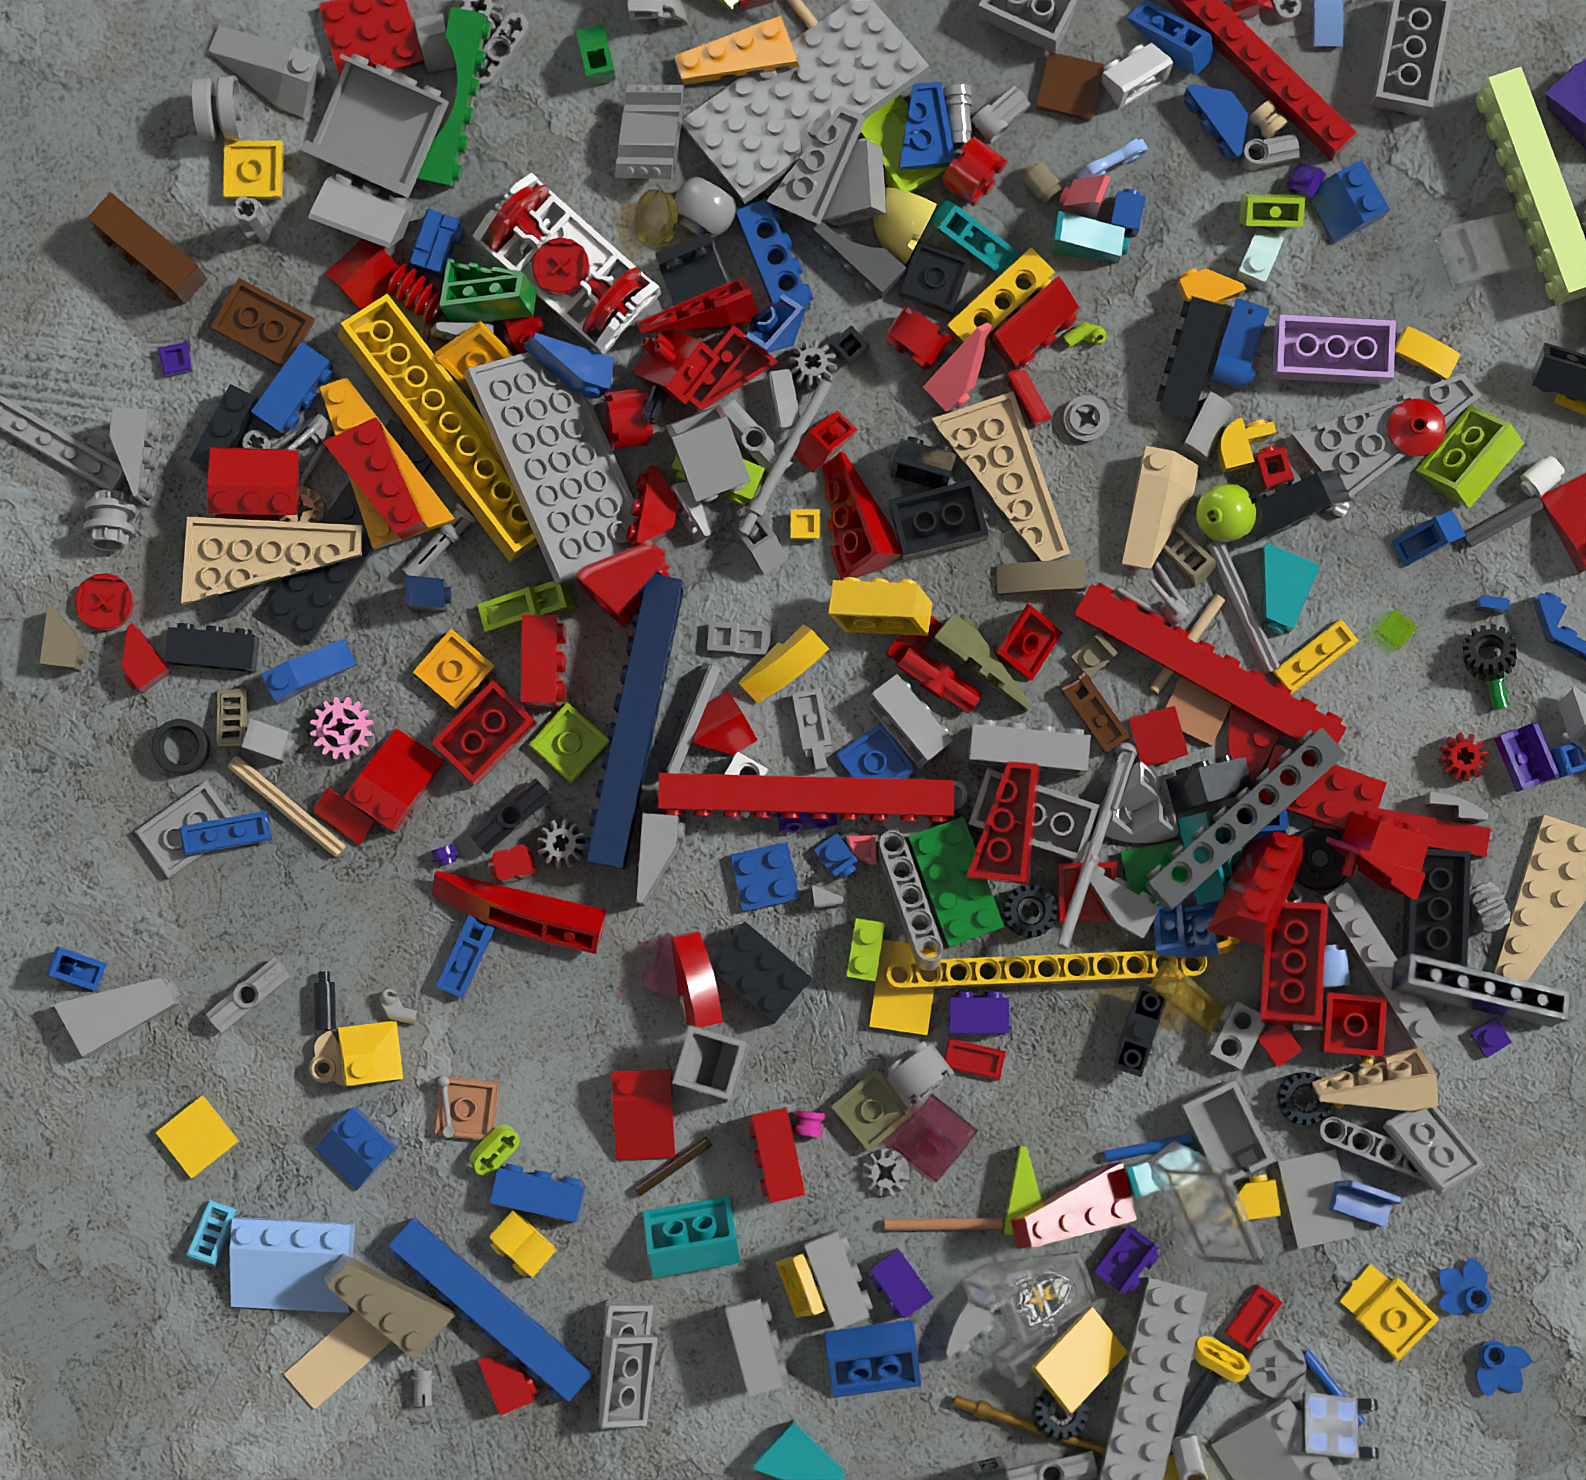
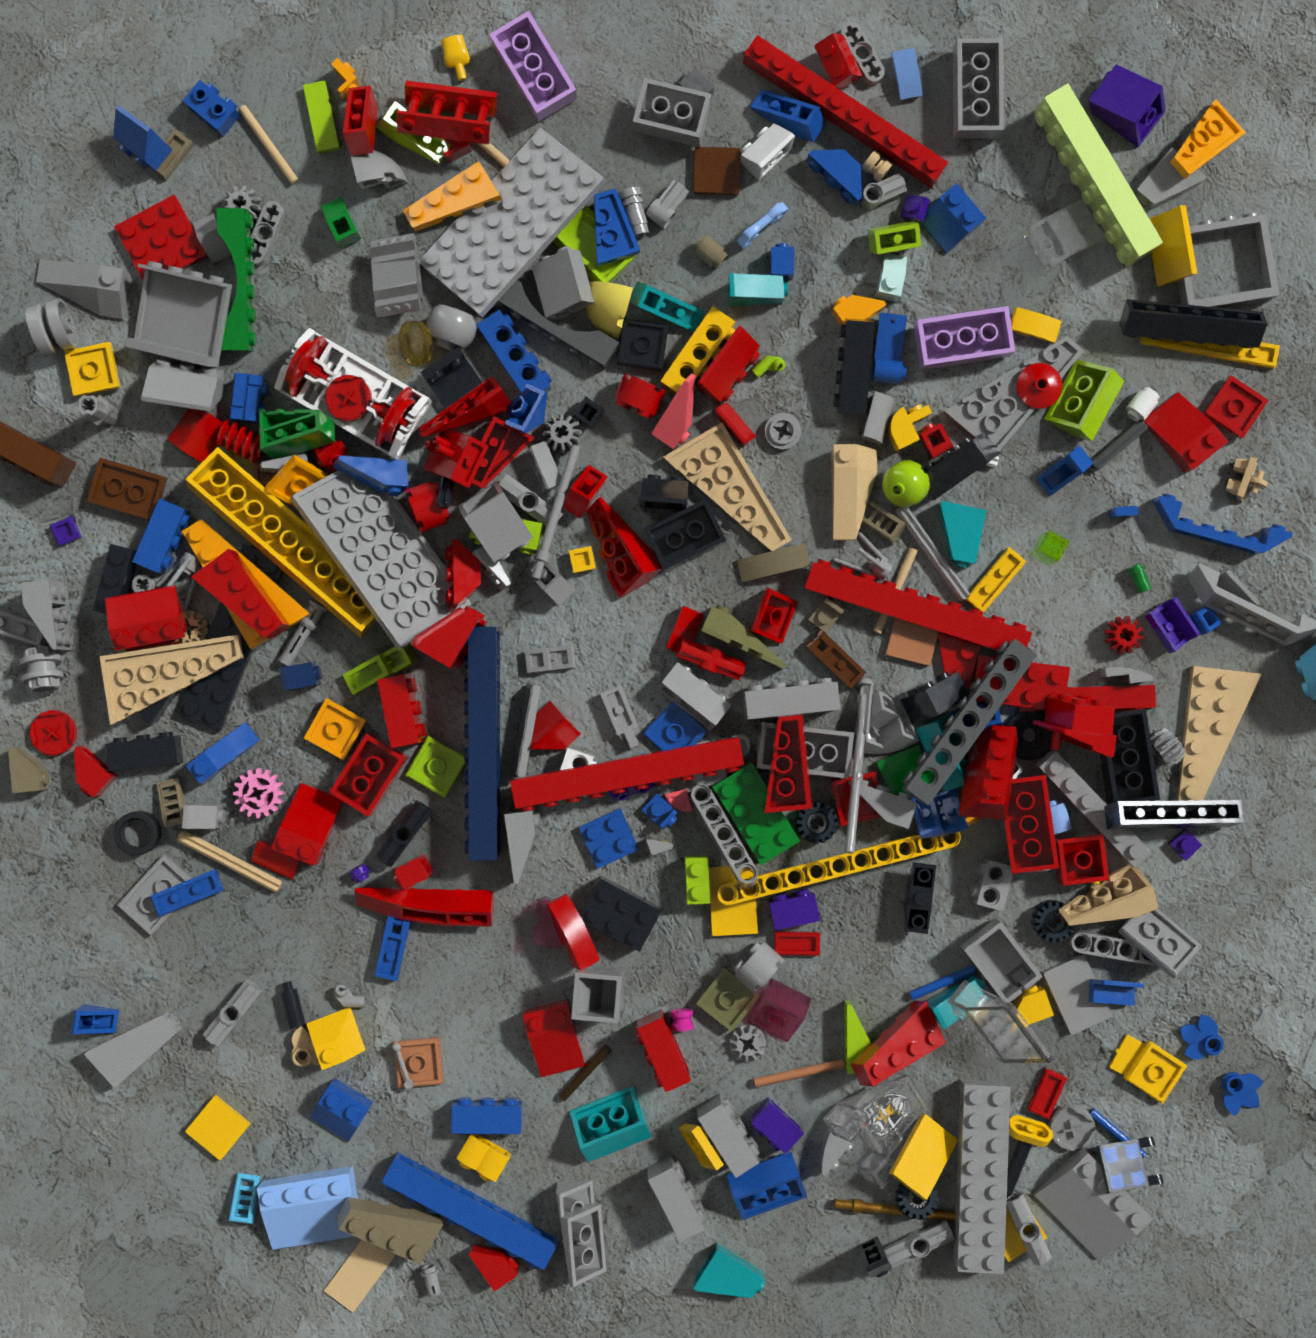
camera: 15 degrees left, 5 degrees up
(494, 1150) = (446, 1090): lime beam -> none
(552, 840) = (439, 844): light grey gear -> none
(783, 664) = (588, 672): yellow slope -> none
(817, 172) = (533, 283): light grey wing -> none
(880, 606) = (654, 614): yellow brick -> none
(974, 171) = (656, 255): red brick -> none
(1085, 196) = (746, 257): coral slope -> none
(1127, 1260) = (944, 1072): dark purple bracket -> none
(1158, 736) = (887, 667): red piece -> none
(1187, 996) = (950, 864): clear yellow tile -> none
(1279, 1044) = (1027, 886): red panel -> none
(1485, 638) = (1133, 562): black tyre -> none

